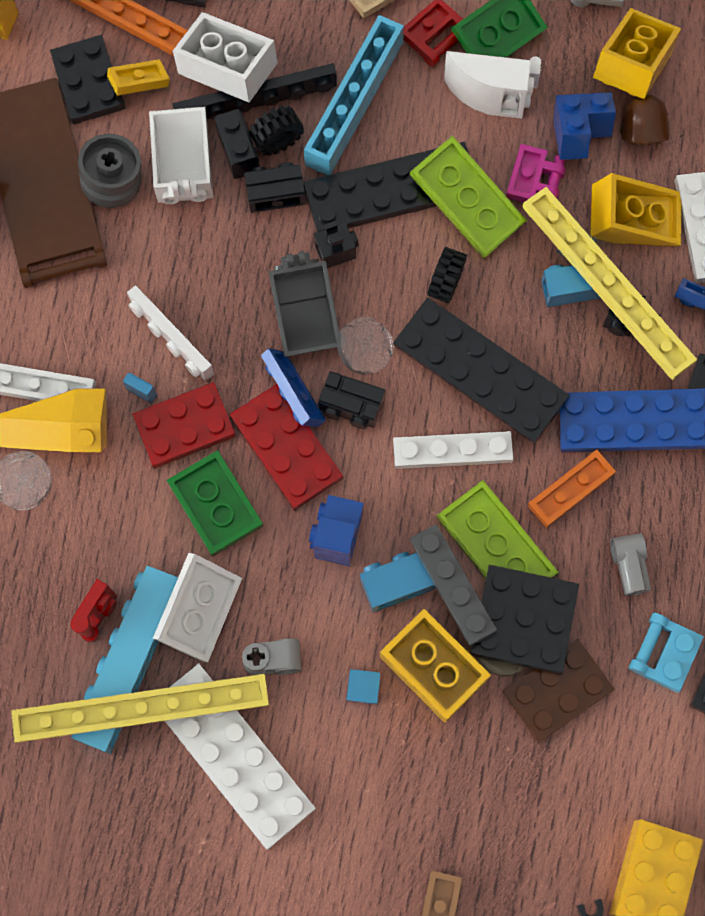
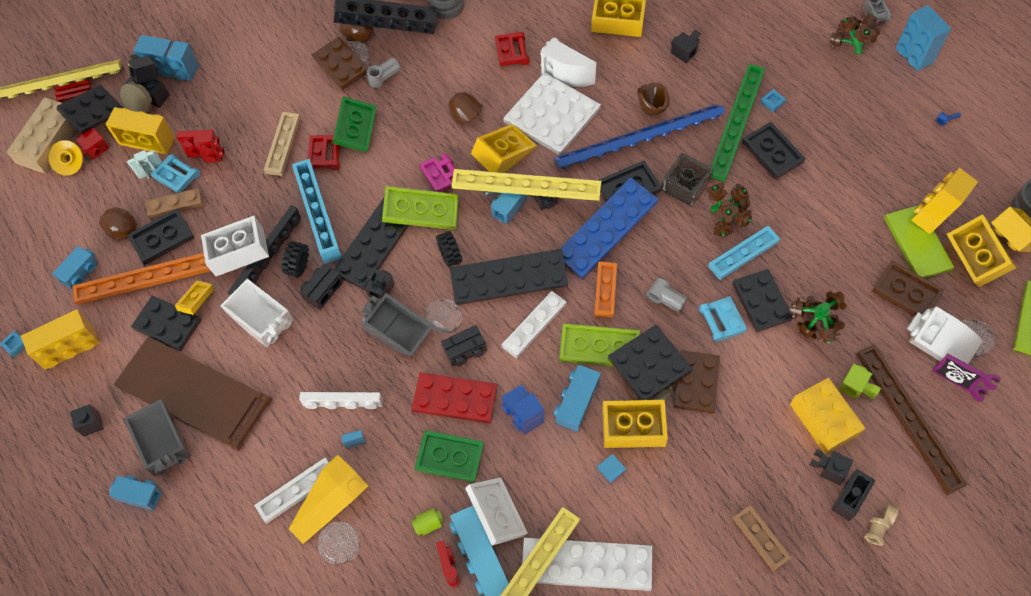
camera: 45 degrees left, 10 degrees down
(109, 170) = (227, 352): dark grey wheel -> none
(123, 548) = (427, 521): none -> lime brick
(183, 425) = (393, 436): red plate -> none
(236, 142) = (280, 283): black brick -> none
(280, 657) = (558, 495): light grey piece -> none
(292, 388) = (430, 367): blue plate -> none
(453, 585) = (603, 378): dark grey plate -> none
(492, 83) = (377, 149): white piece -> none
(579, 119) = (437, 130): blue brick -> none
(636, 53) = (431, 81): yellow brick -> none

